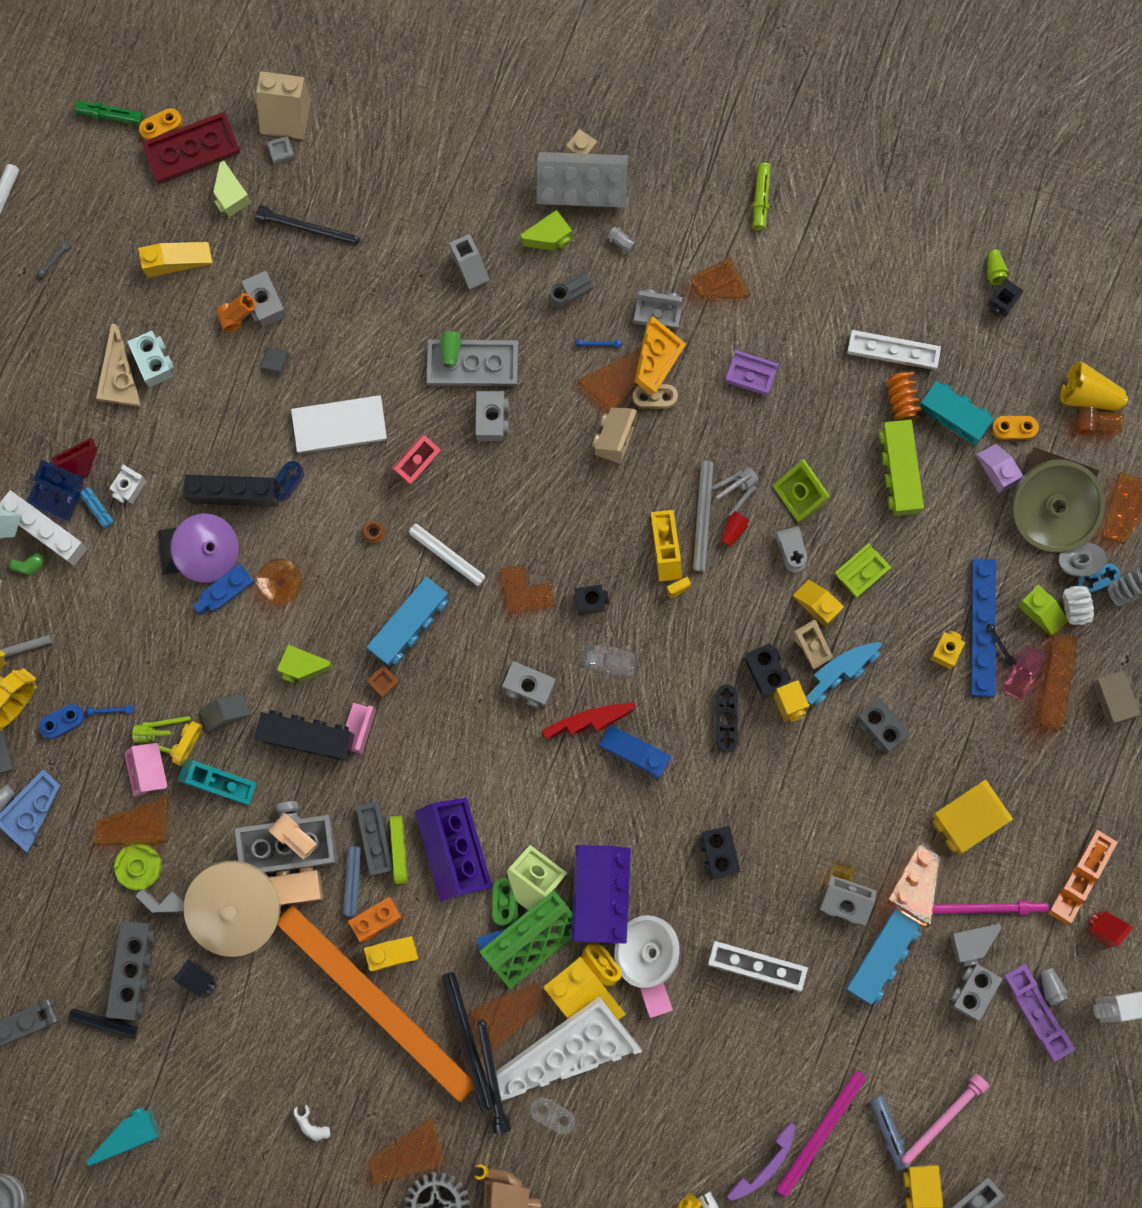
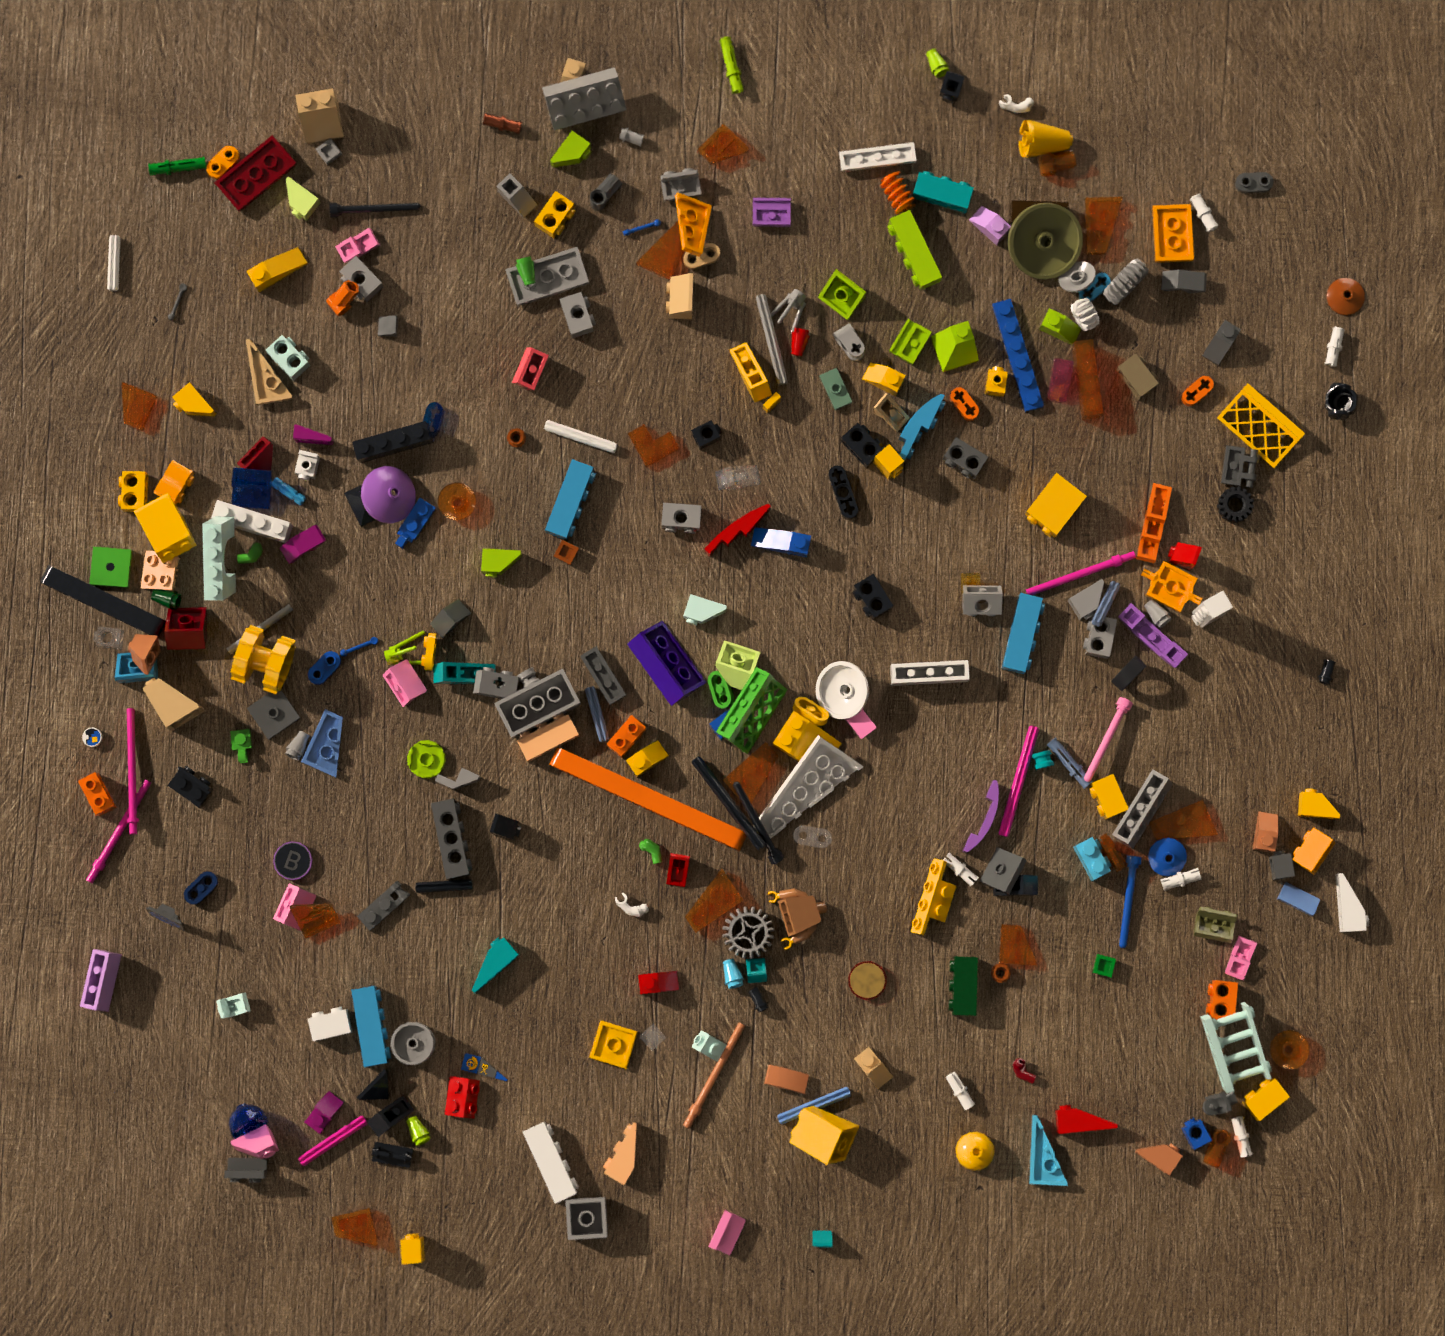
camera: 25 degrees left, 5 degrees up
(27, 373) = (192, 402): none -> yellow slope
(89, 571) = (302, 543): none -> magenta slope
(136, 450) = (309, 436): none -> magenta slope
(136, 826) = (414, 728): clear orange wing -> none
(232, 908) = (513, 764): tan dish -> none
(233, 805) = (485, 679): none -> light grey brick
(274, 261) = (357, 245): none -> bright pink slope
(289, 833) = (539, 692): light nougat piece -> none
(304, 736) = (520, 615): black brick -> none
(339, 424) = (458, 361): white tile -> none
(359, 724) = (559, 595): bright pink panel -> none
(360, 1063) = (653, 848): none -> bright green arm
(380, 1100) = (678, 870): none -> red slope
(398, 850) = (624, 677): lime beam -> none
(482, 179) = (502, 123): none -> copper pin
(501, 293) = (550, 212): none -> yellow brick
(515, 801) = (702, 610): none -> light aqua slope
(601, 894) = (793, 658): dark purple slope -> none
(758, 596) = (835, 389): none -> sand green plate
(859, 1118) = (1043, 759): none -> teal wheel
(897, 664) = (961, 406): none -> orange beam
(913, 593) = (955, 346): none -> lime slope
(917, 886) = (1030, 572): clear orange wing -> none
(994, 955) = (1105, 603): none -> sand blue axle
(996, 1049) = (1128, 673): none -> black tyre
(1010, 660) = (1046, 374): black hinge -> none
(1015, 428) = (993, 188): light orange plate -> none
(1079, 347) = (1022, 107): none -> white piece
(1080, 961) = (1171, 586): none -> light orange plate

